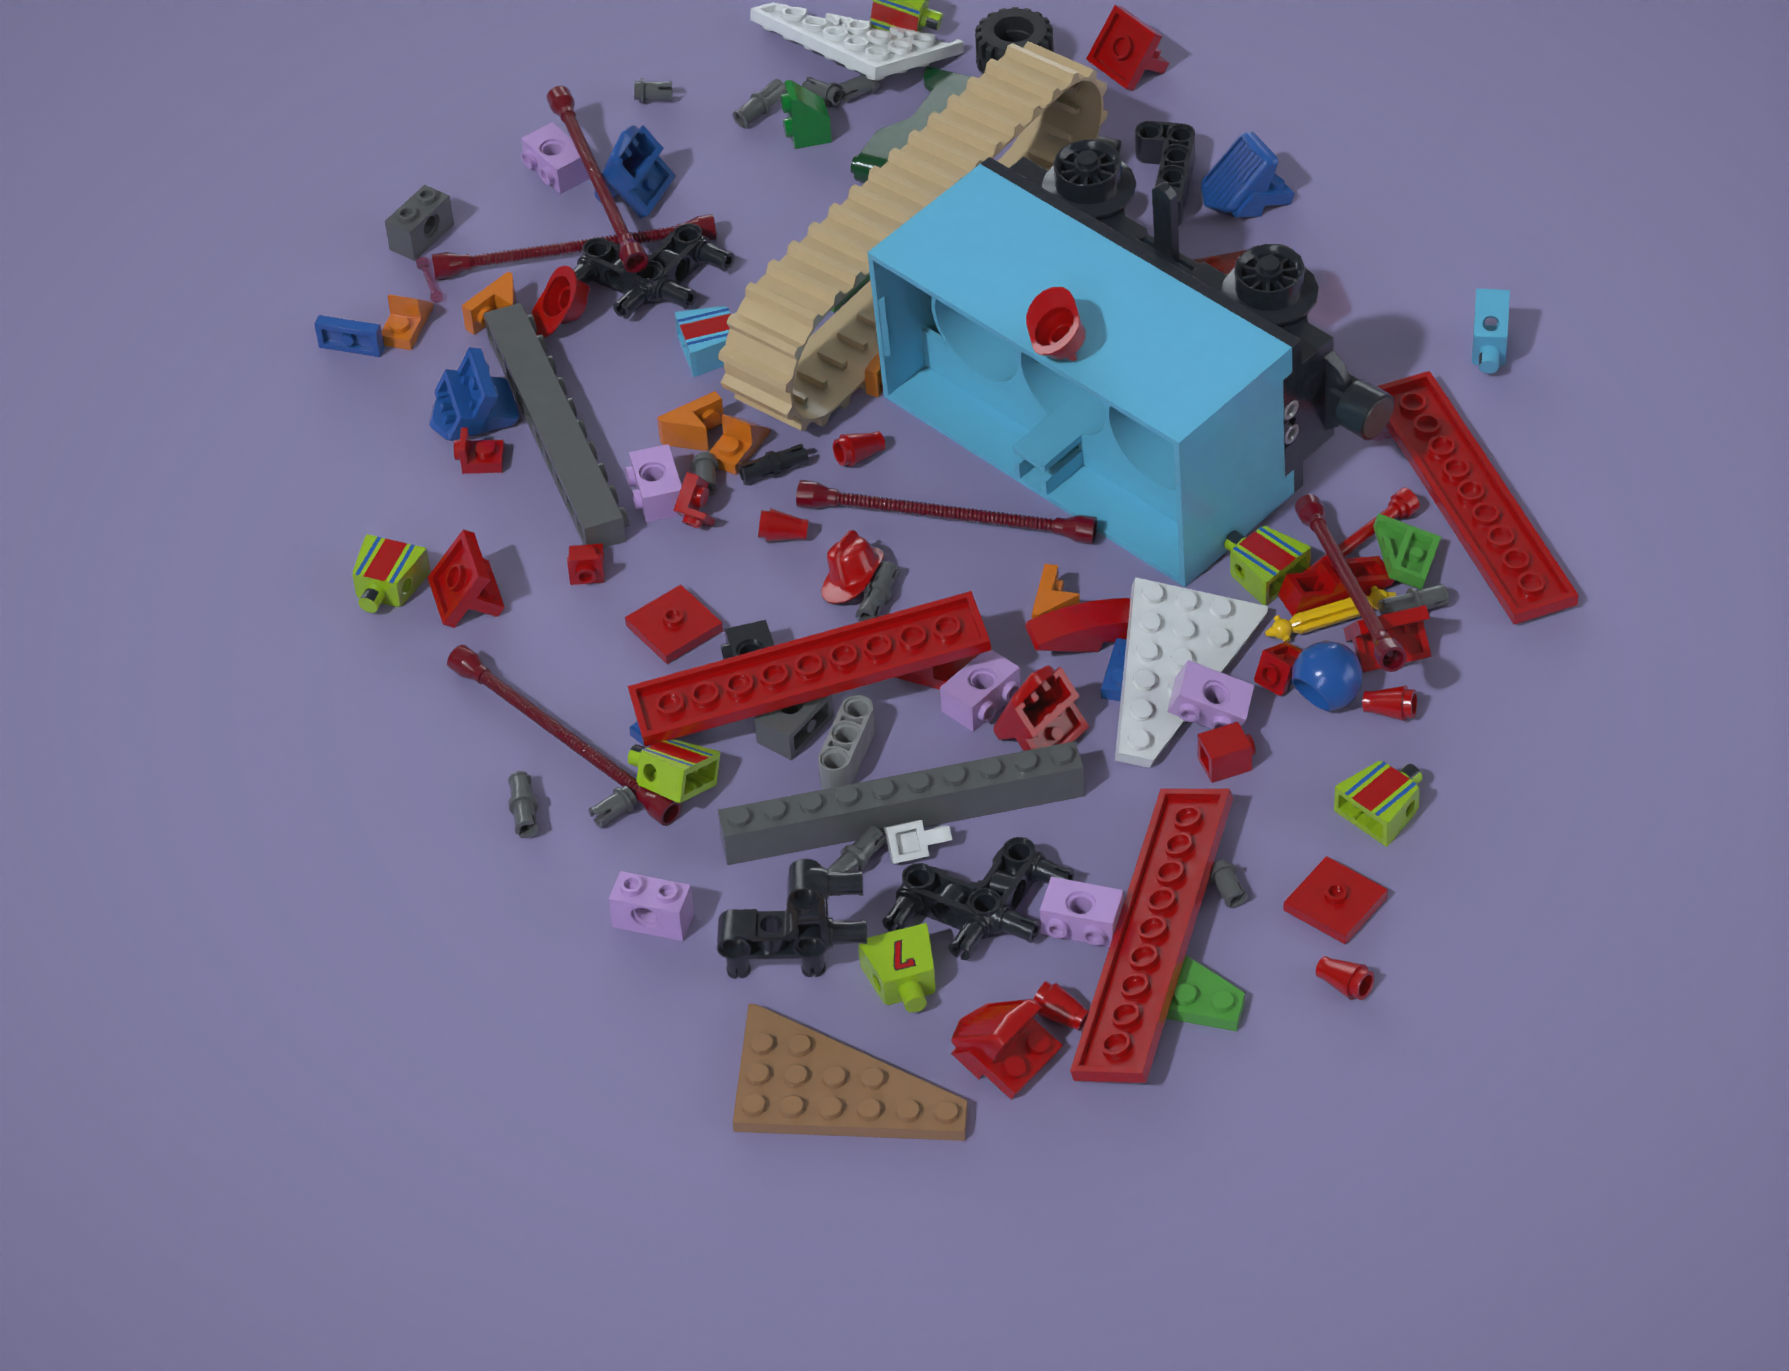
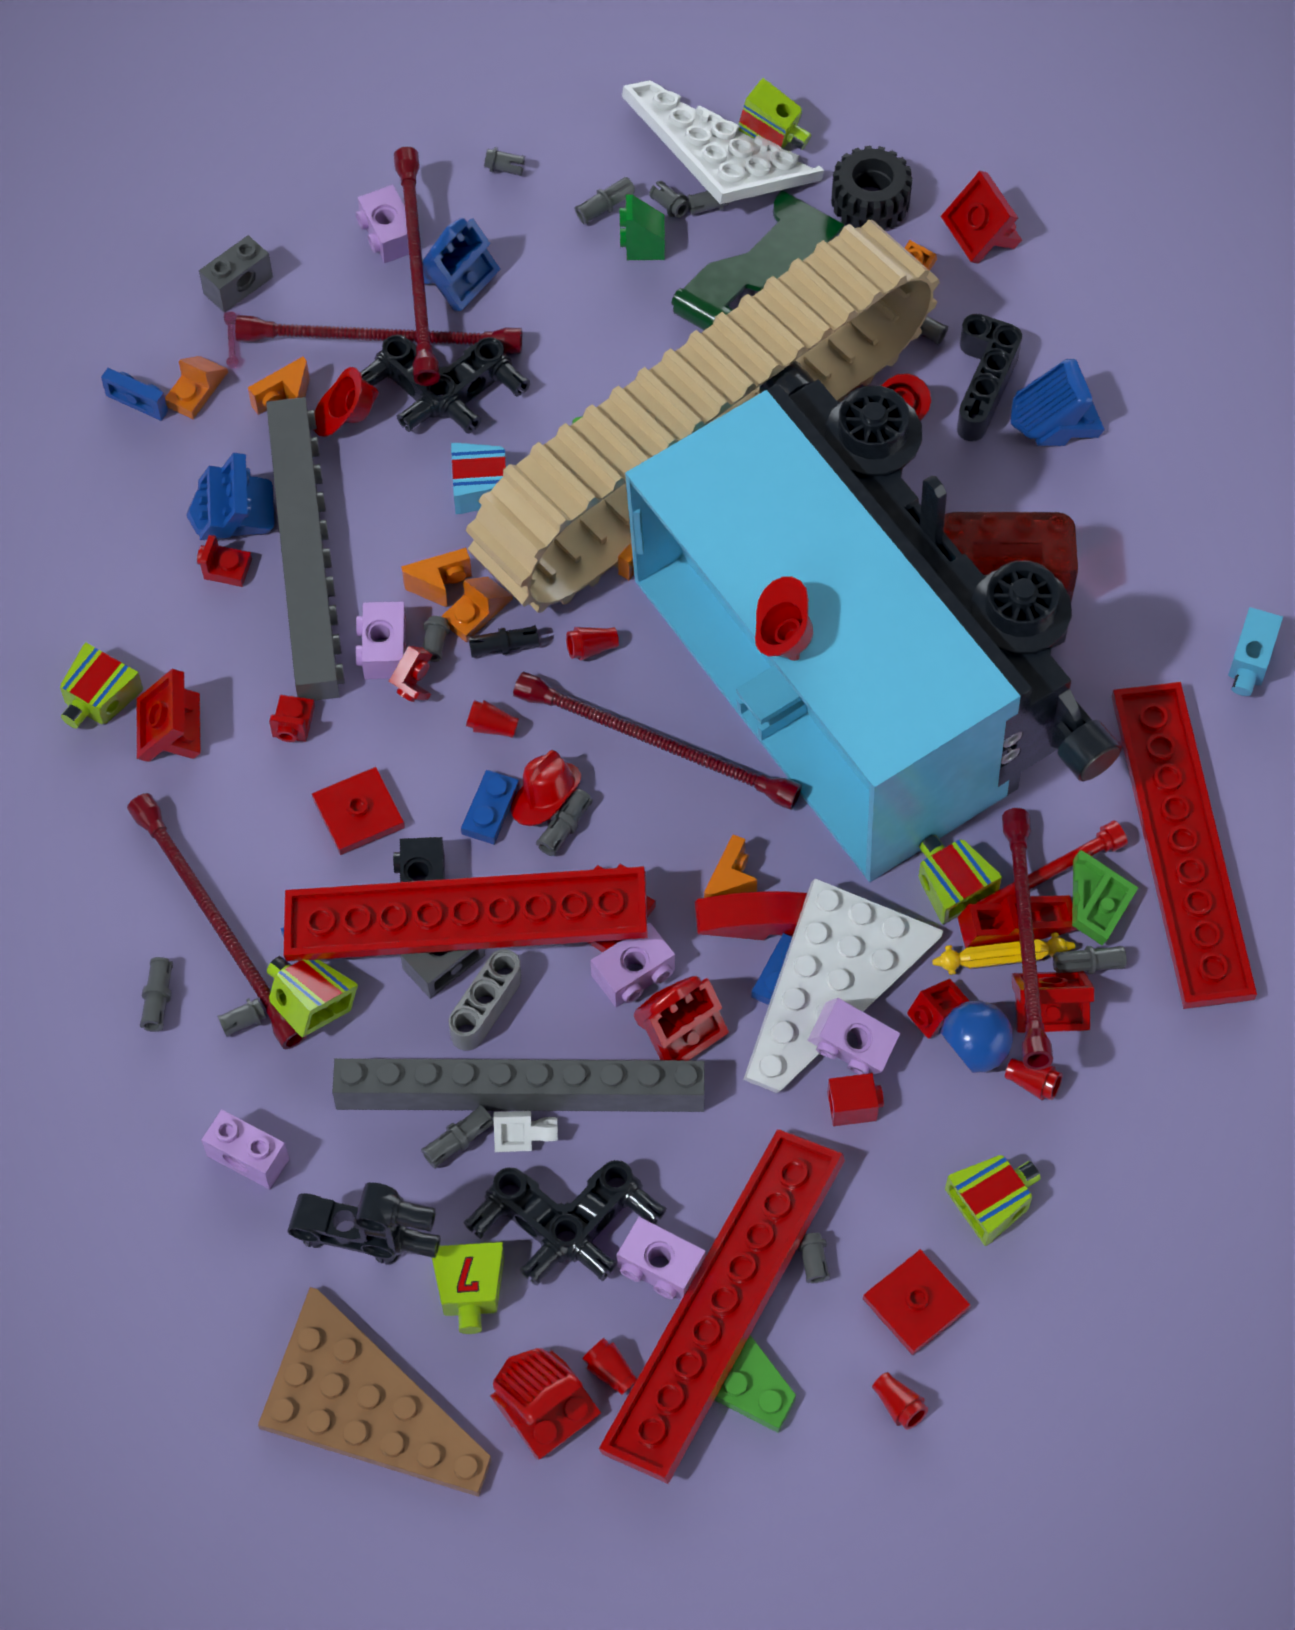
camera: 10 degrees right, 15 degrees up
(801, 597) = (490, 807): none -> blue plate

